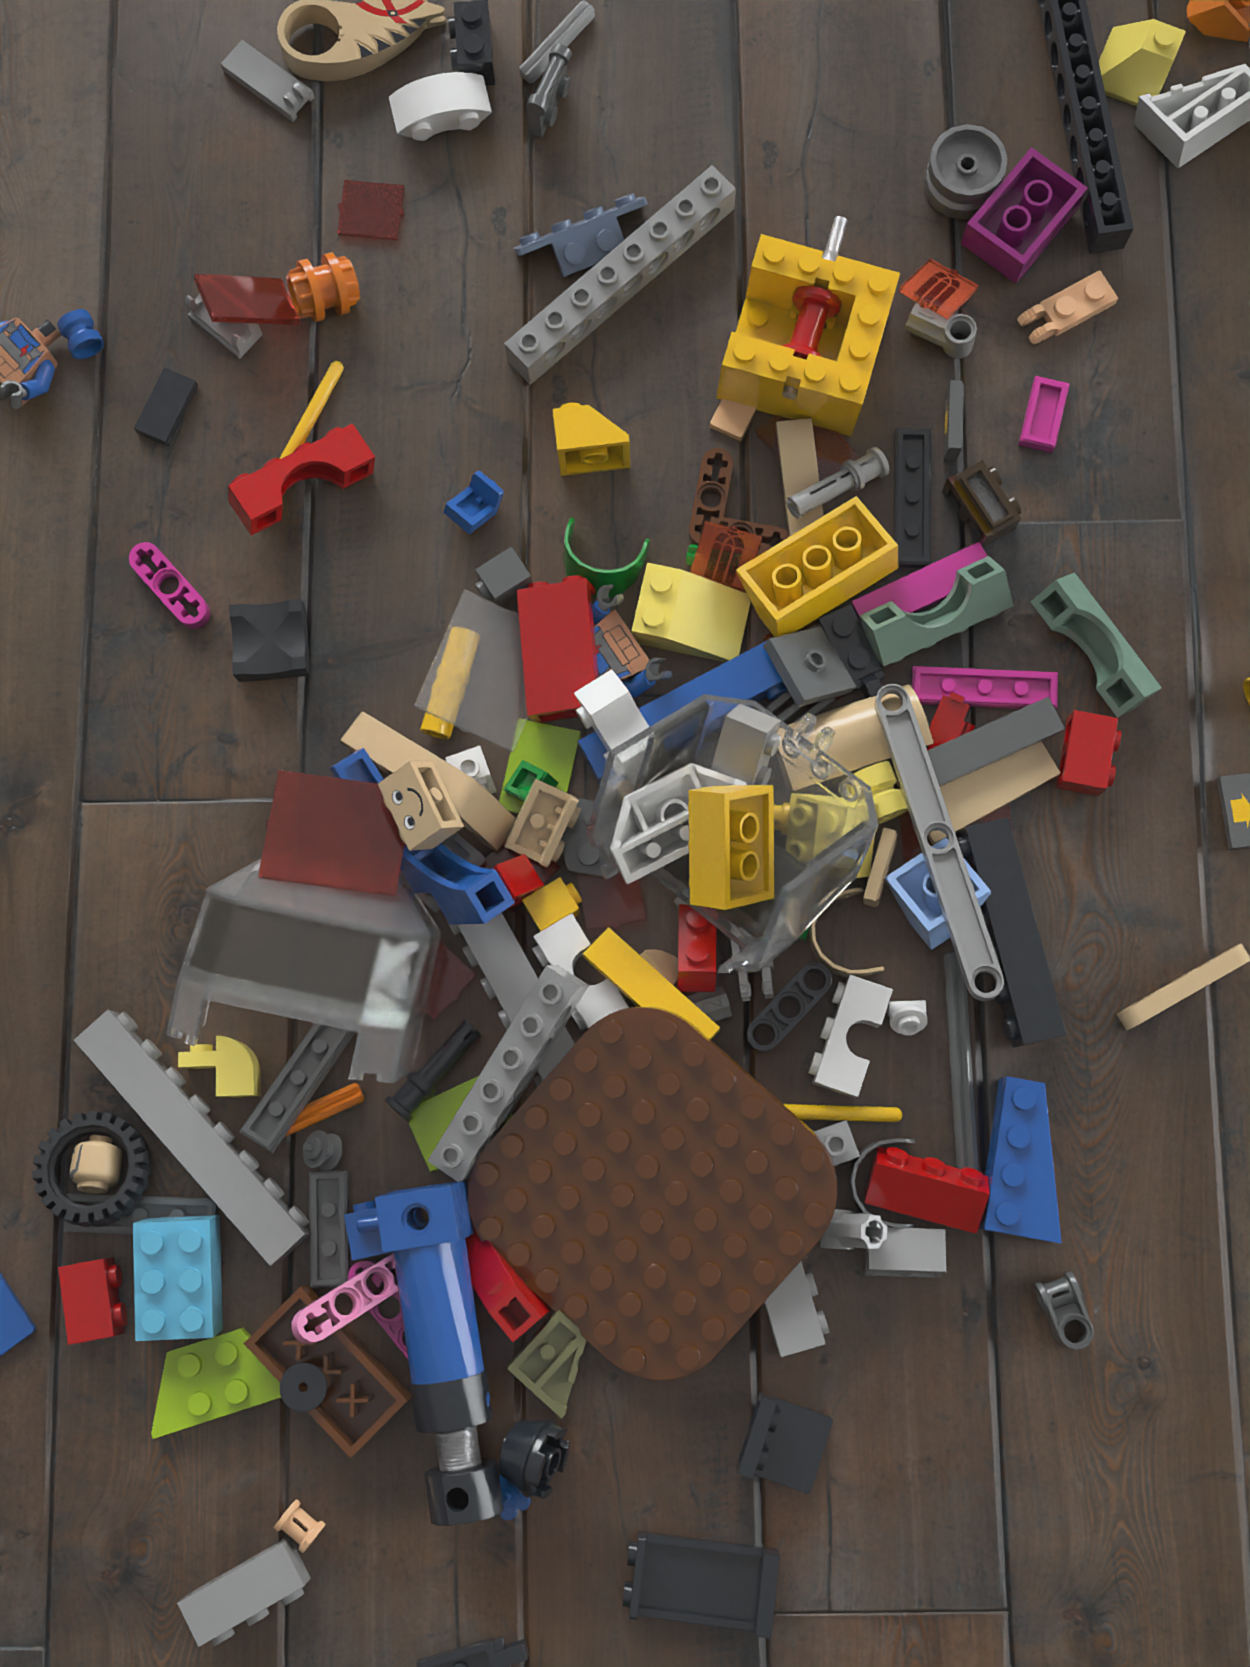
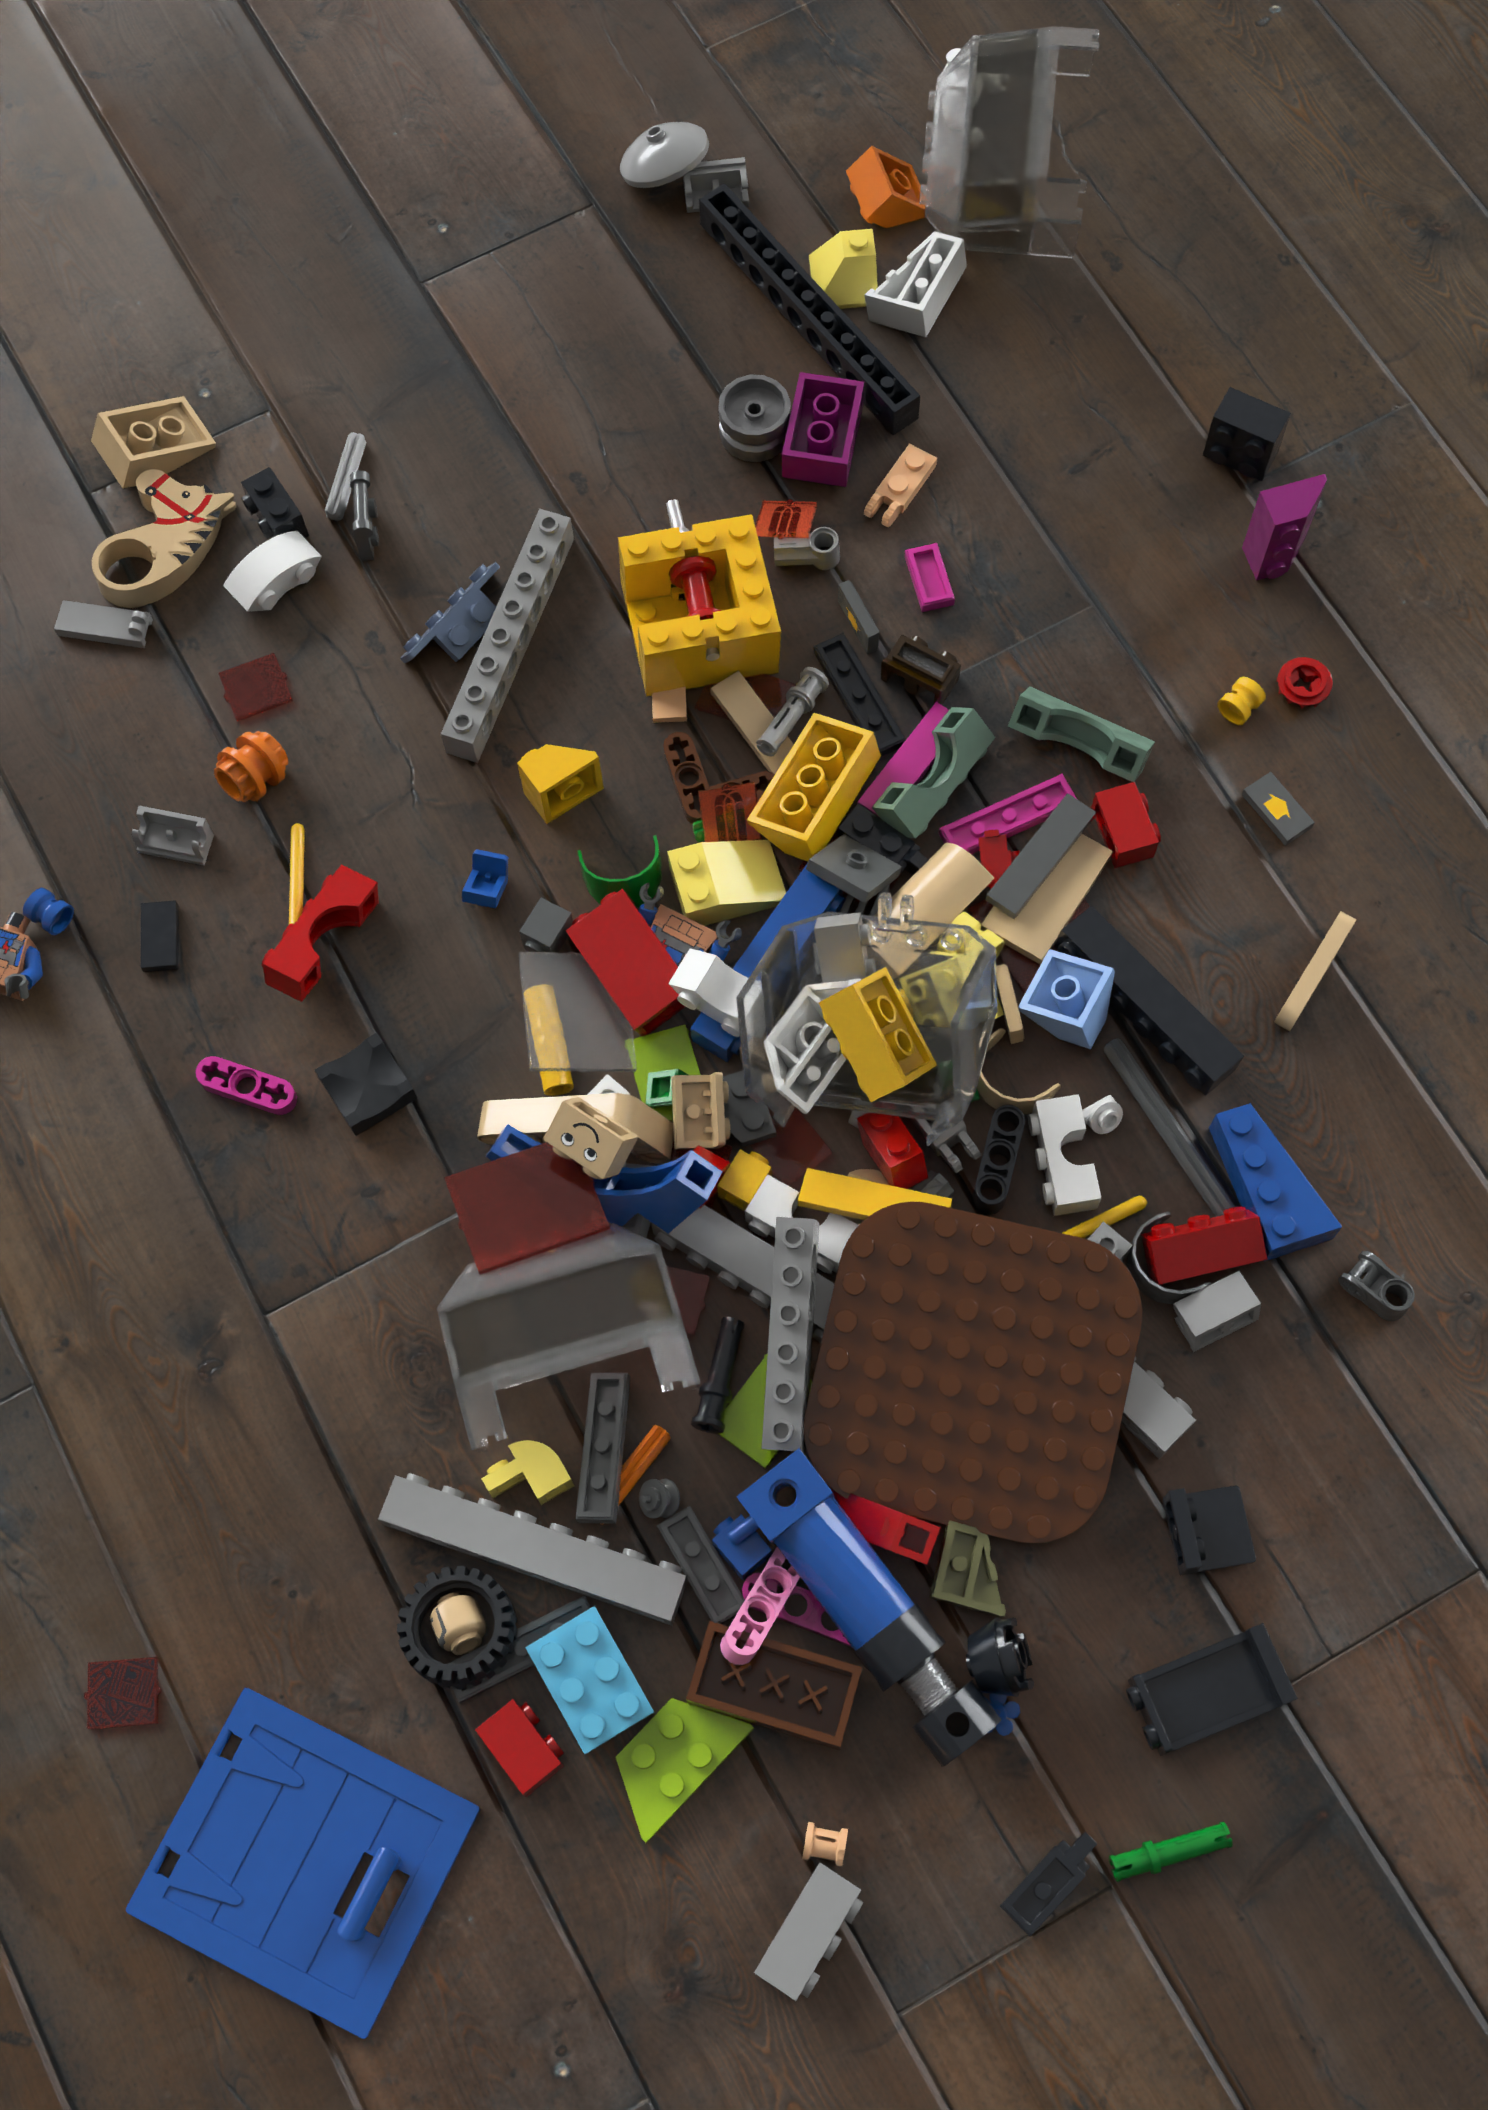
camera: 30 degrees left, 10 degrees down
(246, 299) = (188, 807): clear red piece -> none
(291, 1392) = (758, 1719): black wheel -> none
(854, 1230) = (1164, 1312): light grey piece -> none
(944, 865) = (1064, 967): light grey beam -> none

